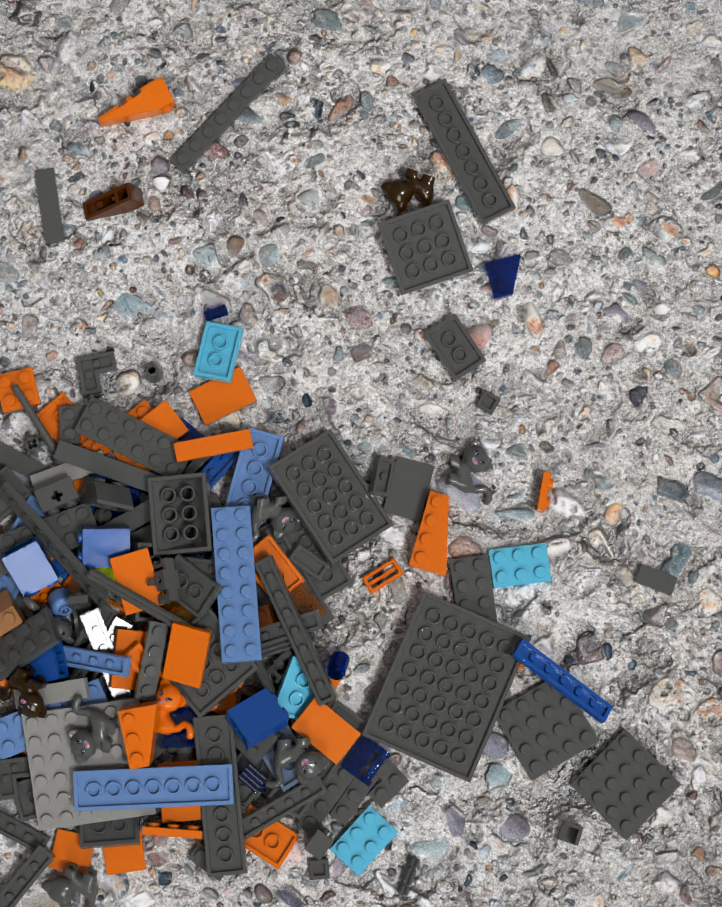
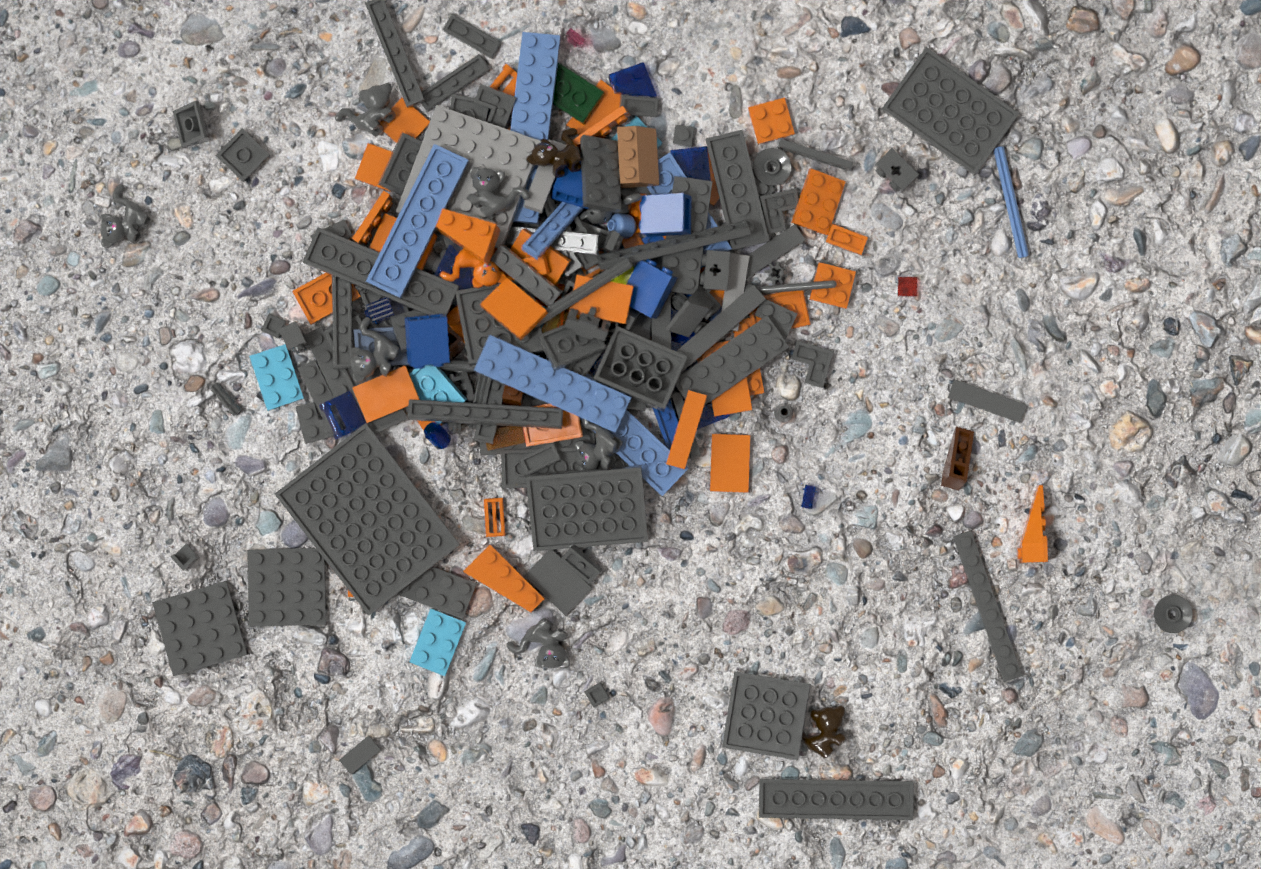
camera: 120 degrees right, 5 degrees up
(218, 352) = (770, 480): medium azure plate -> none
(454, 347) = (661, 692): dark grey plate -> none
(502, 275) = (703, 771): clear blue wing -> none
(546, 484) = (495, 705): orange plate -> none
(561, 680) = (316, 621): blue plate -> none

